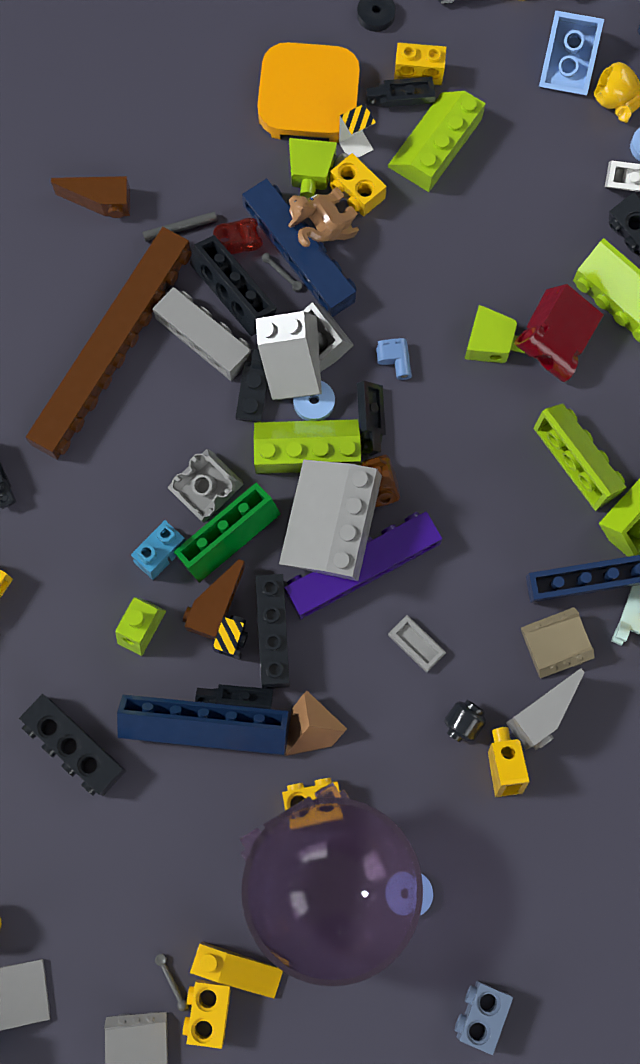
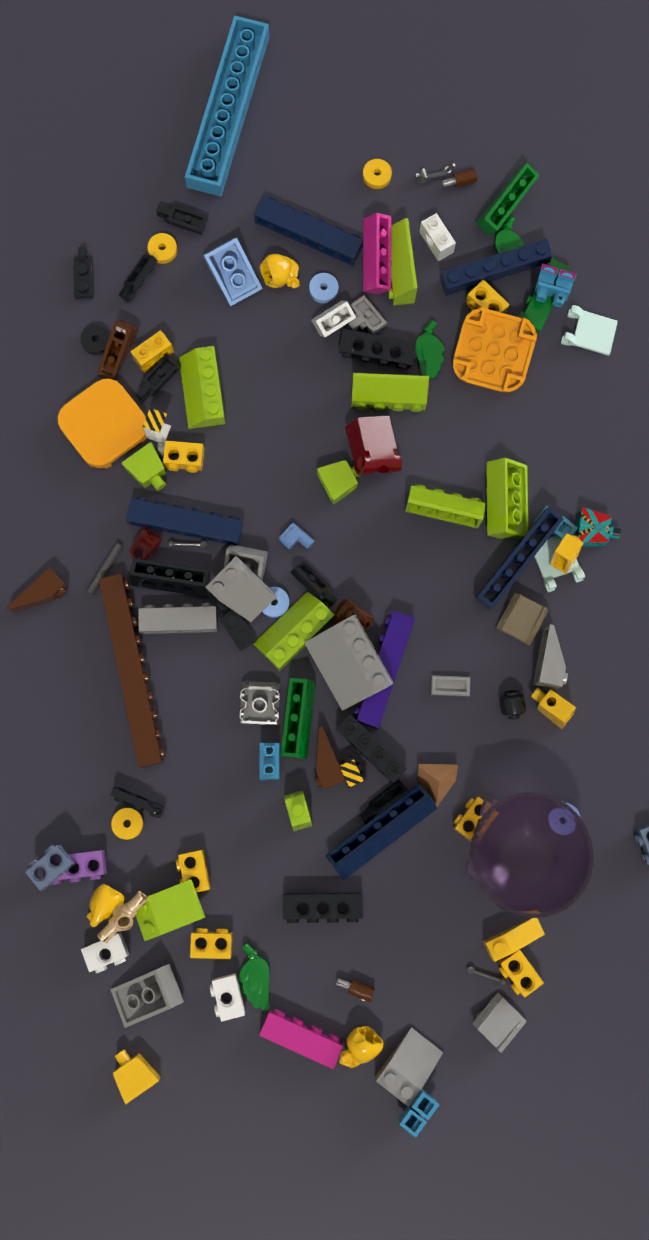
camera: 45 degrees left, 5 degrees up
(25, 865) = (357, 989): none -> reddish brown piece
(325, 216) = (185, 492): medium nougat animal -> none
(399, 26) = (117, 348): none -> reddish brown slope

